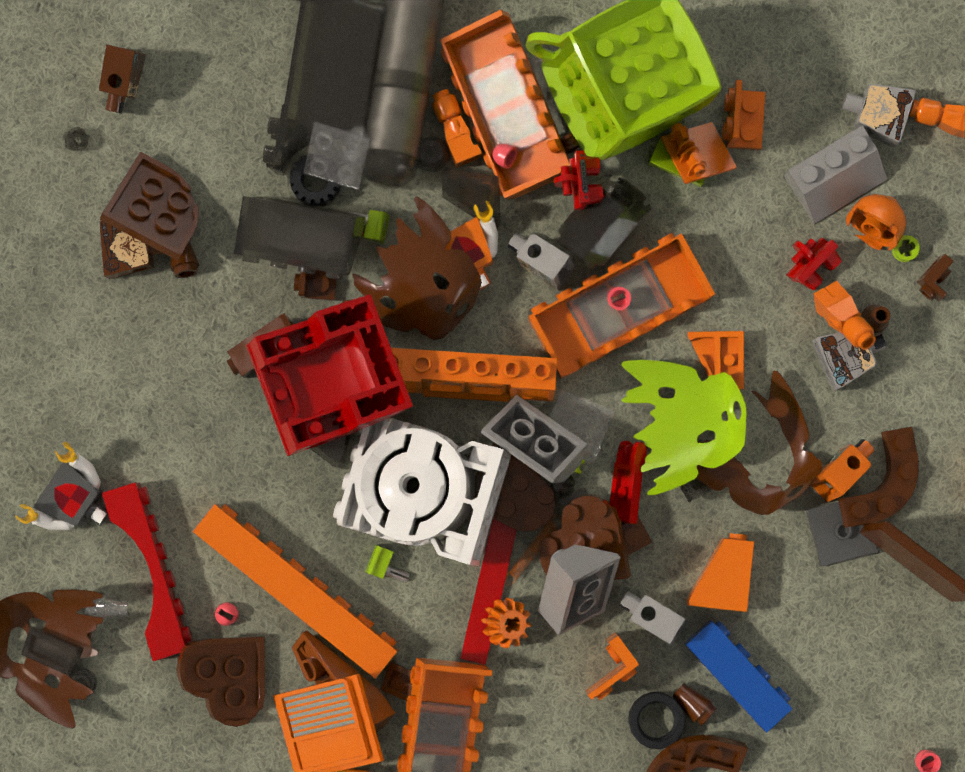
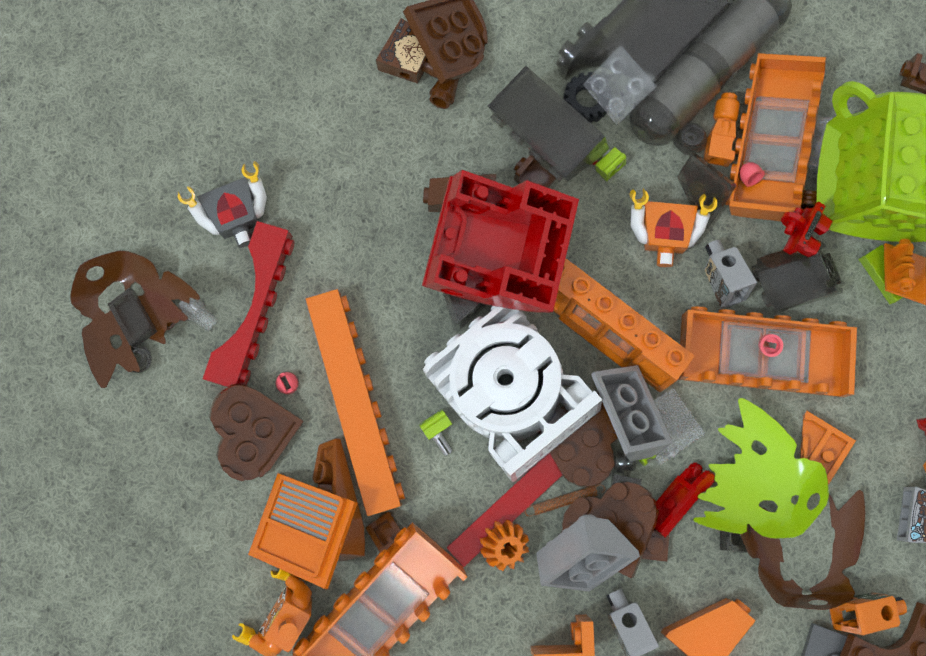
camera: 30 degrees right, 5 degrees down
(411, 280) = (612, 221): reddish brown piece -> none

